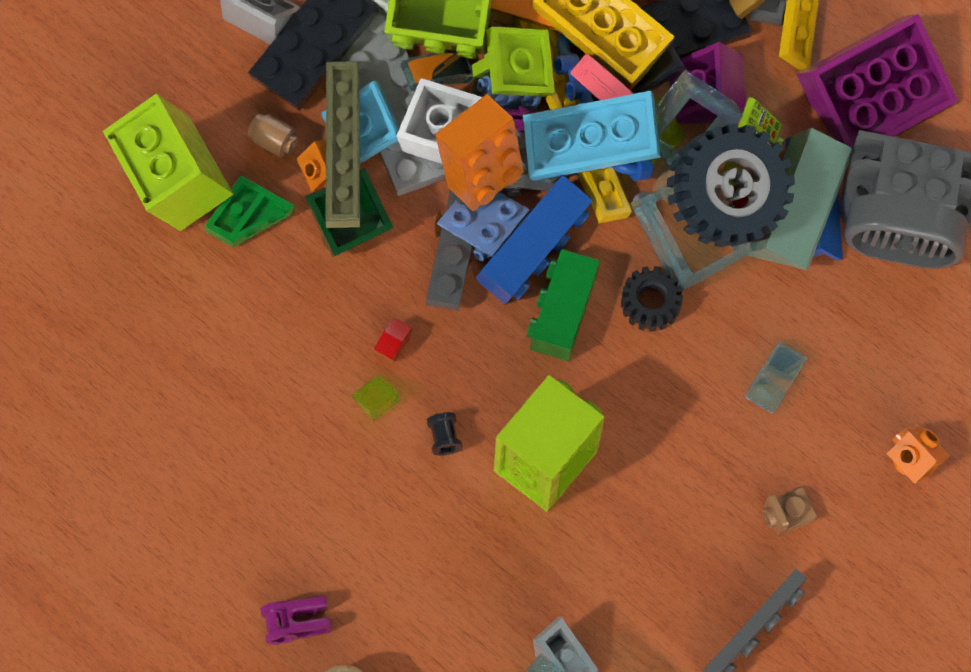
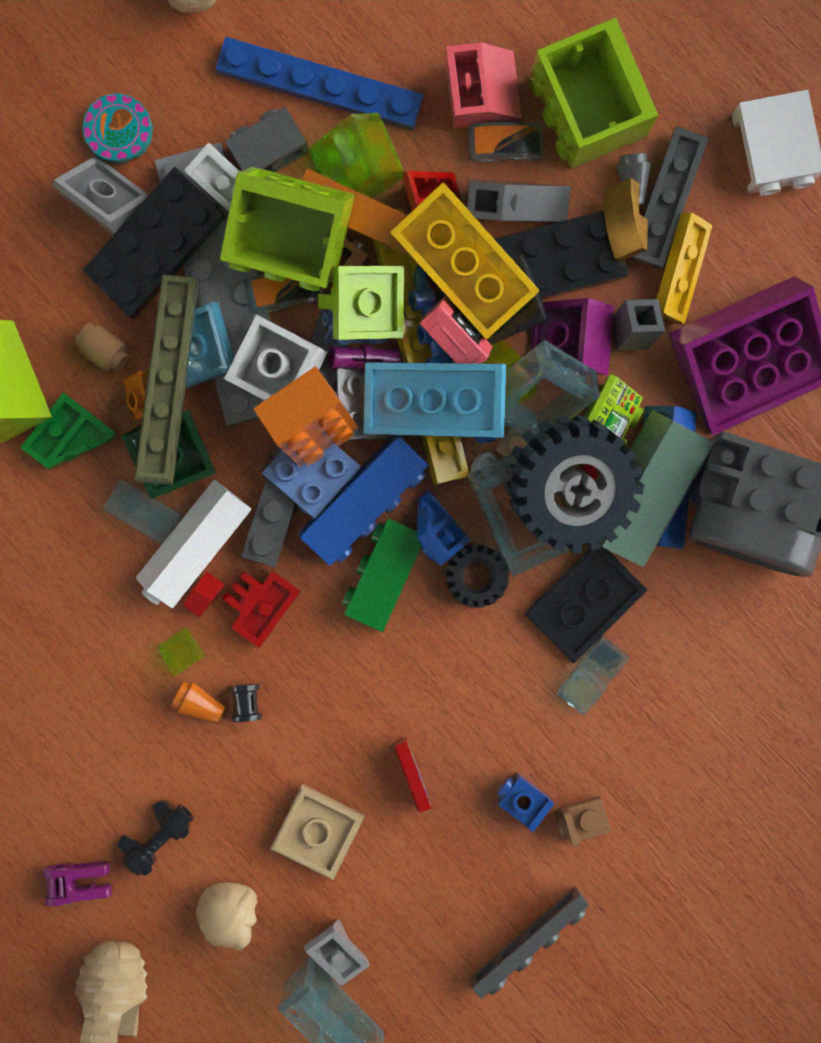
camera: 10 degrees right, 20 degrees up
(325, 273) = (141, 512): none -> clear light blue plate
(378, 293) = (192, 545): none -> white brick
(386, 555) = (174, 824): none -> black piece
(396, 439) = (196, 702): none -> orange cone
(448, 344) = (261, 605): none -> red hinge
(450, 631) = (227, 914): none -> tan hair
(529, 547) = (317, 832): none -> tan plate
(548, 442) = (344, 744): lime container -> none
(611, 259) = (437, 529): none -> blue wing
(616, 482) = (412, 775): none -> red tile
(728, 507) = (539, 803): none -> blue brick
(757, 314) = (585, 602): none -> black tile
(766, 67) = (637, 324): none -> dark grey brick
(917, 453) = (724, 780): orange brick -> none

